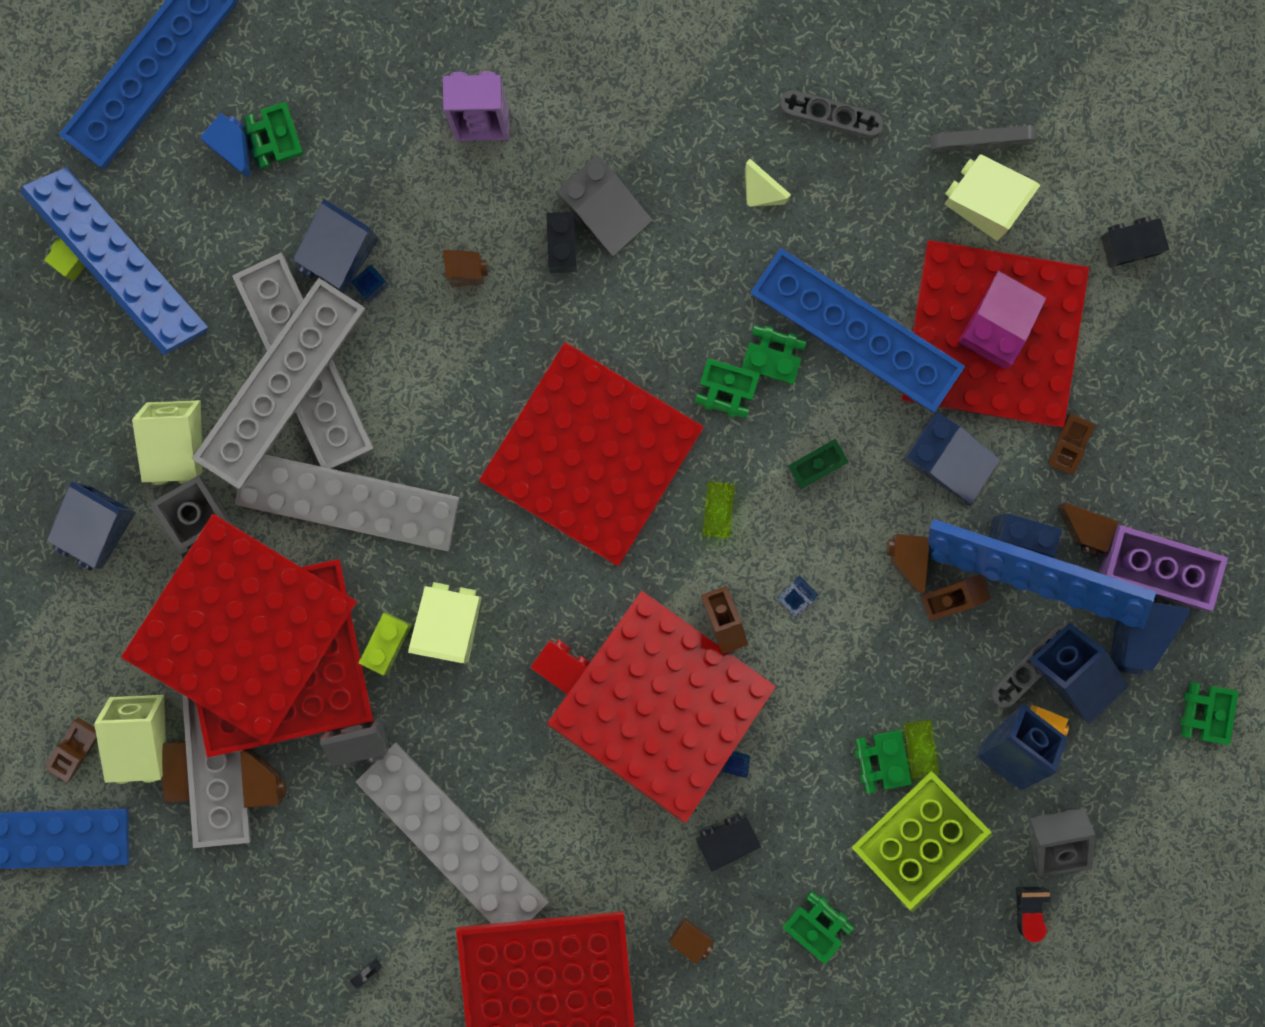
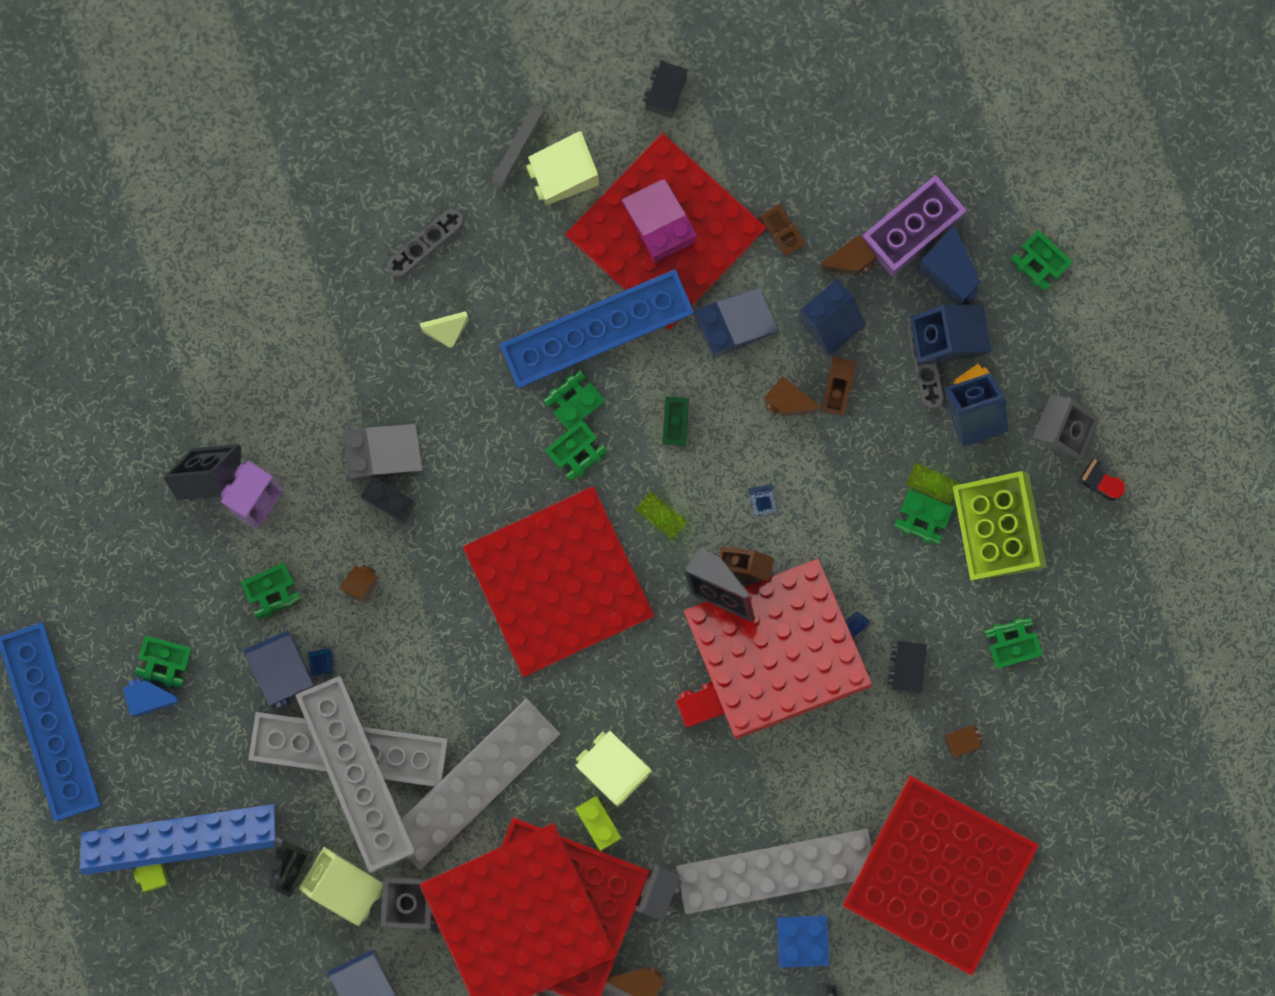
camera: 55 degrees left, 5 degrees down
(156, 378) = (287, 866): none -> black wing
(400, 911) = (803, 941): none -> blue brick
(409, 183) = (267, 584): none -> green plate
(471, 48) = (204, 472): none -> black slope
(685, 604) = (716, 584): none -> black slope
(1040, 574) = (858, 316): blue plate -> none

